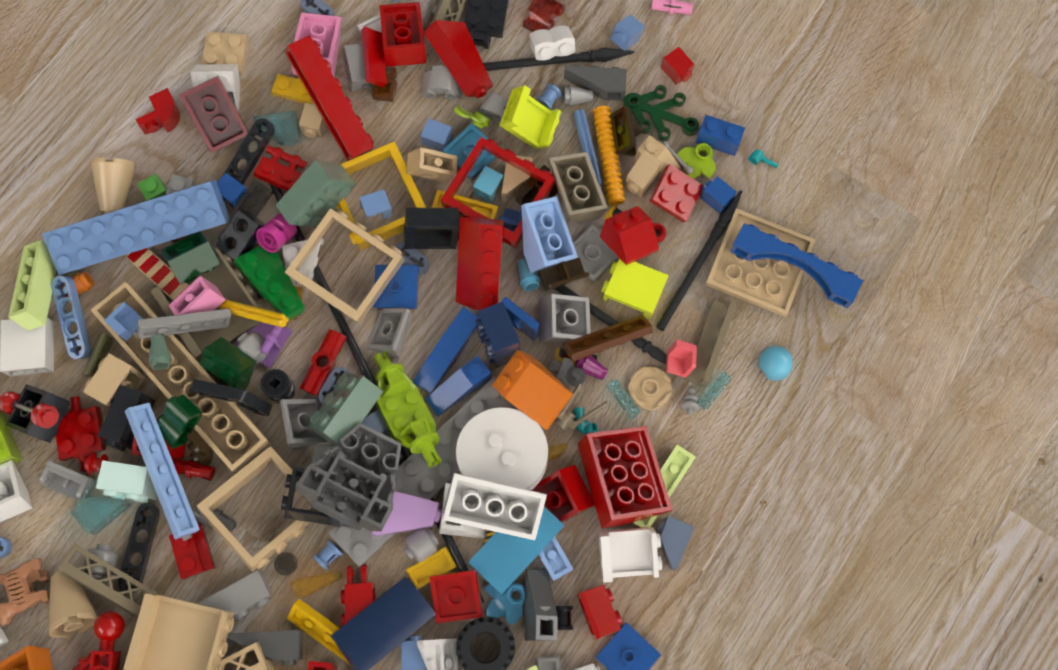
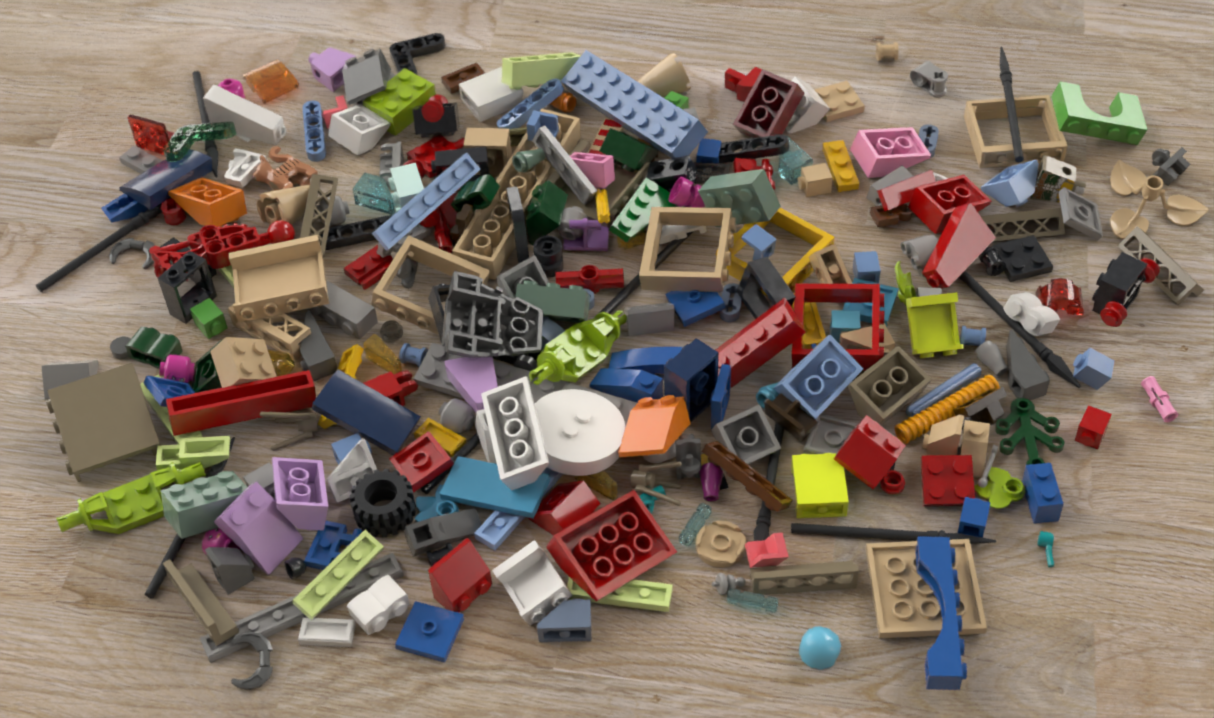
camera: 70 degrees right, 25 degrees down
(329, 98) = (839, 170): red brick -> none

